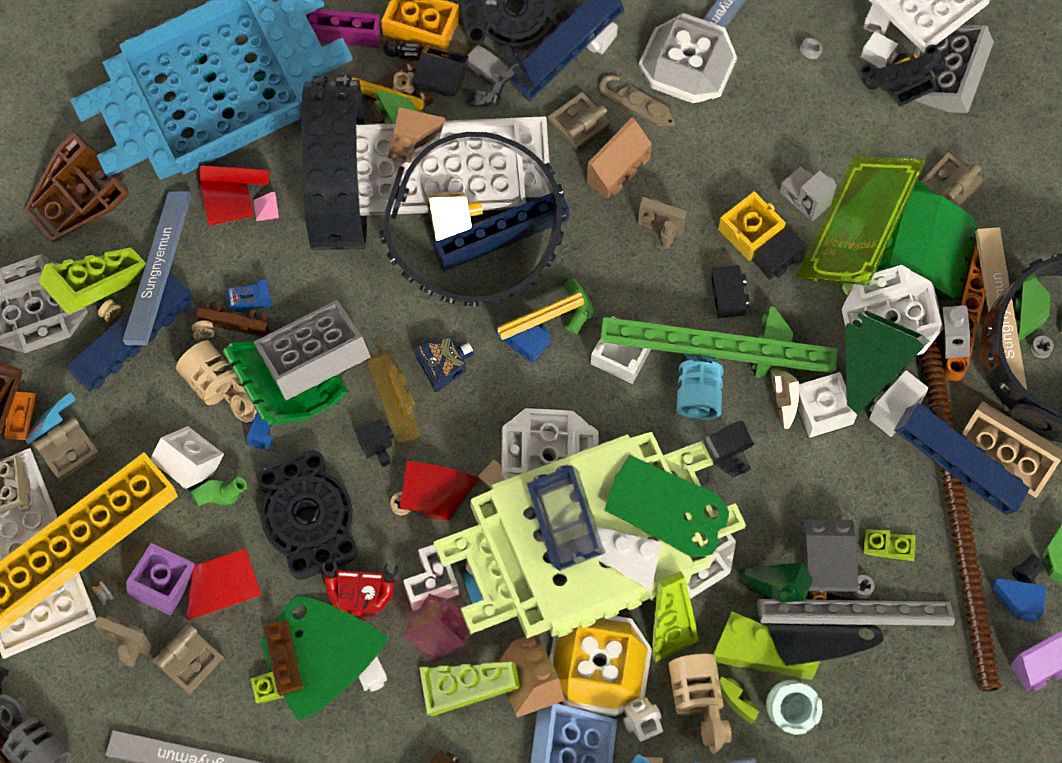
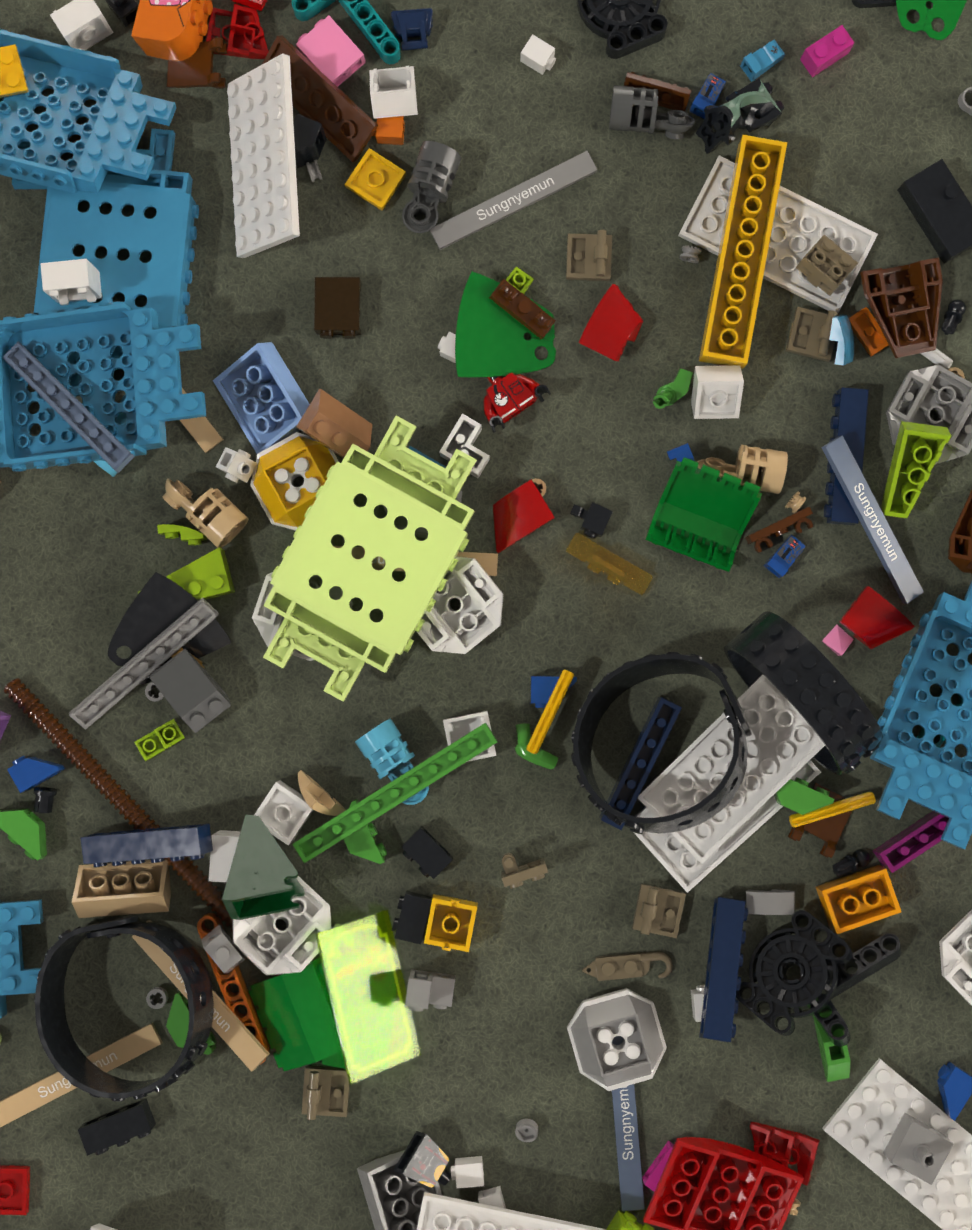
camera: 150 degrees right, 20 degrees up
(109, 310) = (880, 461): tan bush -> none
(131, 639) = (650, 230): dark tan plate -> none
(160, 579) = (657, 292): medium lavender slope -> none
(235, 175) = (885, 646): red slope -> none
(306, 490) = (601, 404): black piece -> none
(312, 349) = (698, 544): light grey slope -> none
(399, 77) = (829, 833): tan plate -> none
(413, 134) = (764, 767): medium nougat slope -> none
(437, 628) = (431, 413): clear pink slope -> none
(440, 71) = (802, 863): black slope -> none
(442, 361) = (596, 621): torso -> none
(451, 213) = (686, 739): torso -> none
(462, 685) = (378, 388): lime wing -> none
(517, 69) = (740, 911): black piece -> none
(565, 517) = (389, 543): door -> none
(619, 159) = (597, 898): medium nougat slope -> none
(630, 555) = (327, 556): white wing -> none
(657, 503) = (339, 616): green piece -> none
(673, 618) = (266, 548): lime wing -> none
(728, 447) = (318, 706): black beam -> none
(780, 582) = (203, 638): dark green slope -> none
(800, 711) = (134, 553): light aqua tile -> none
(903, 72) = (429, 1161): black plate -> none

